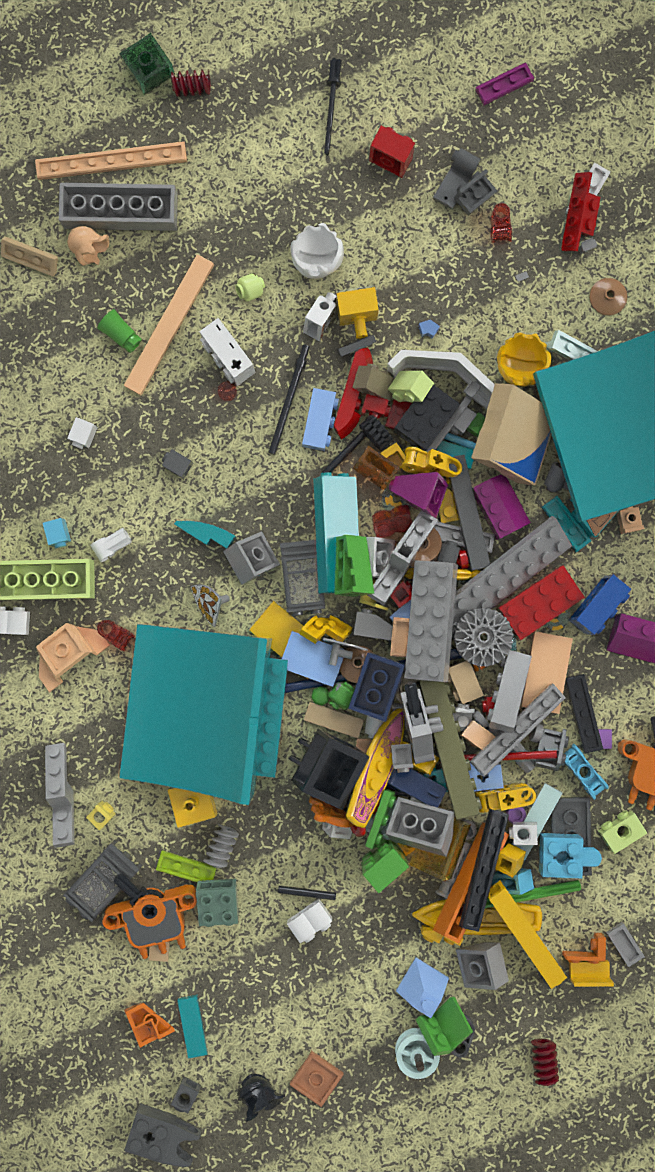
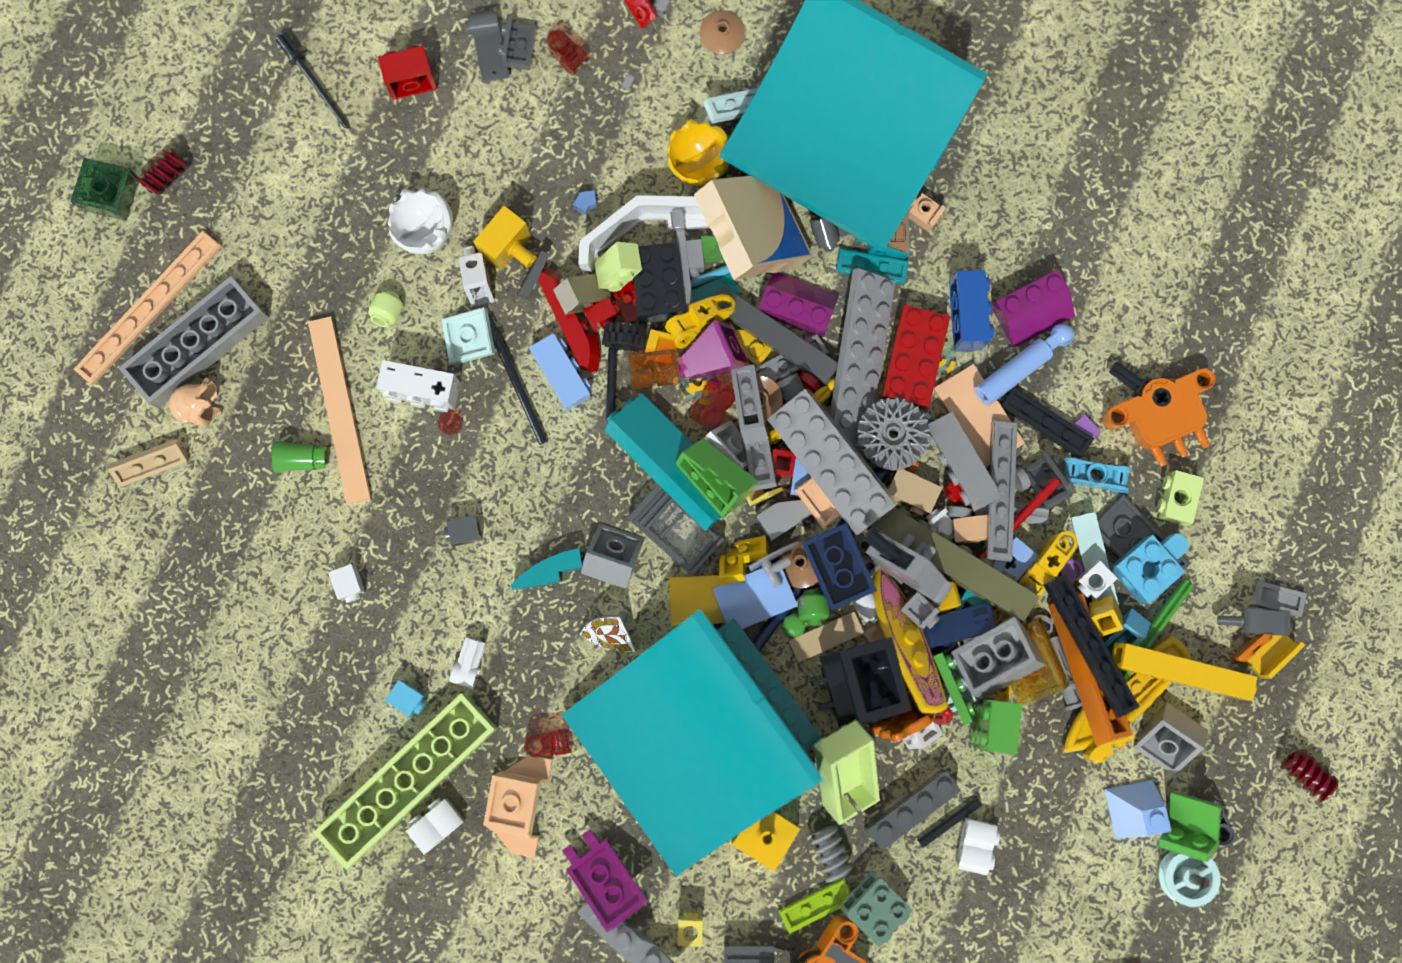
camera: 45 degrees left, 5 degrees down
(75, 743) = (604, 882): none -> magenta tile
(275, 806) = (847, 767): none -> yellowish green piece
(284, 348) = (468, 336): none -> light aqua tile
(291, 865) = (912, 809): none -> dark grey brick
(599, 948) = (1260, 621): none -> dark grey beam
(602, 666) = (1023, 365): none -> light blue piece

